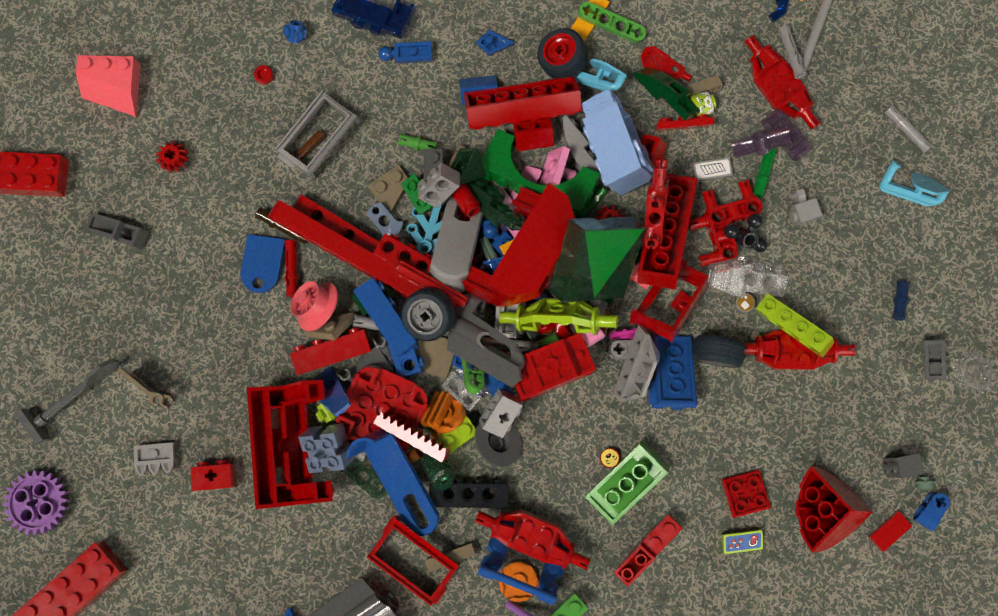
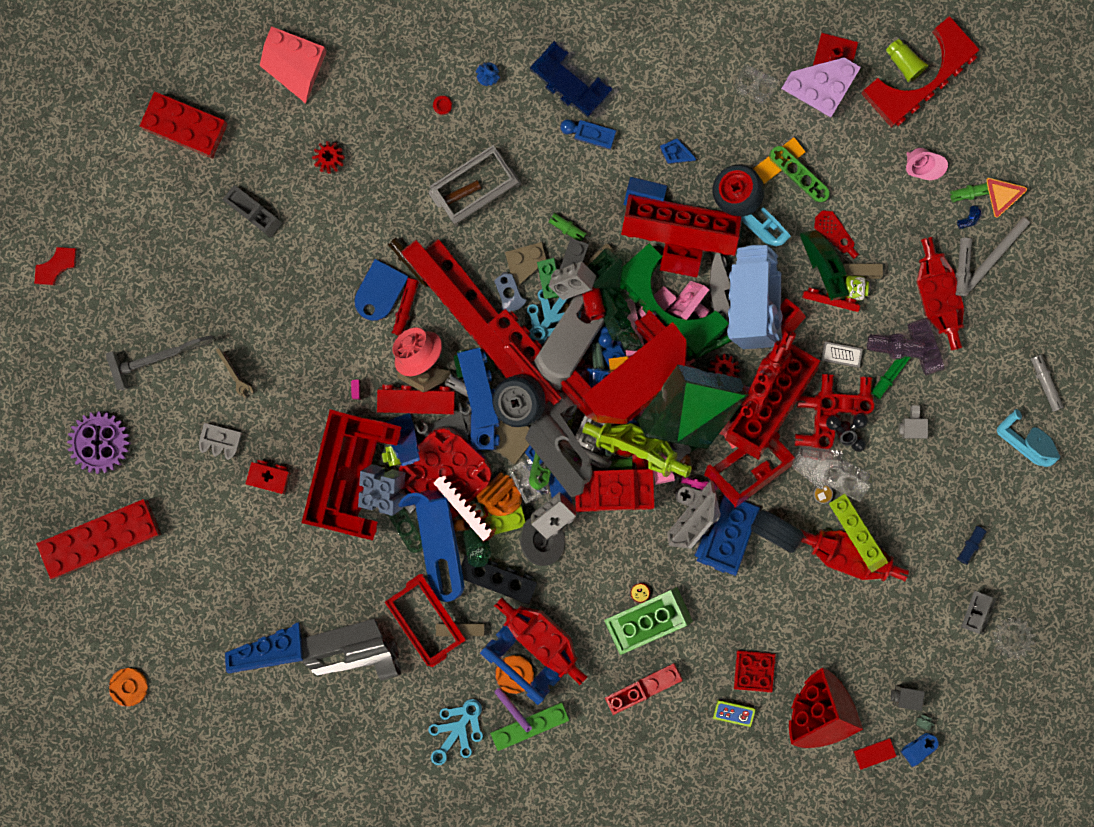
camera: 25 degrees right, 5 degrees up
(270, 362) = (356, 390): none -> dark pink tile

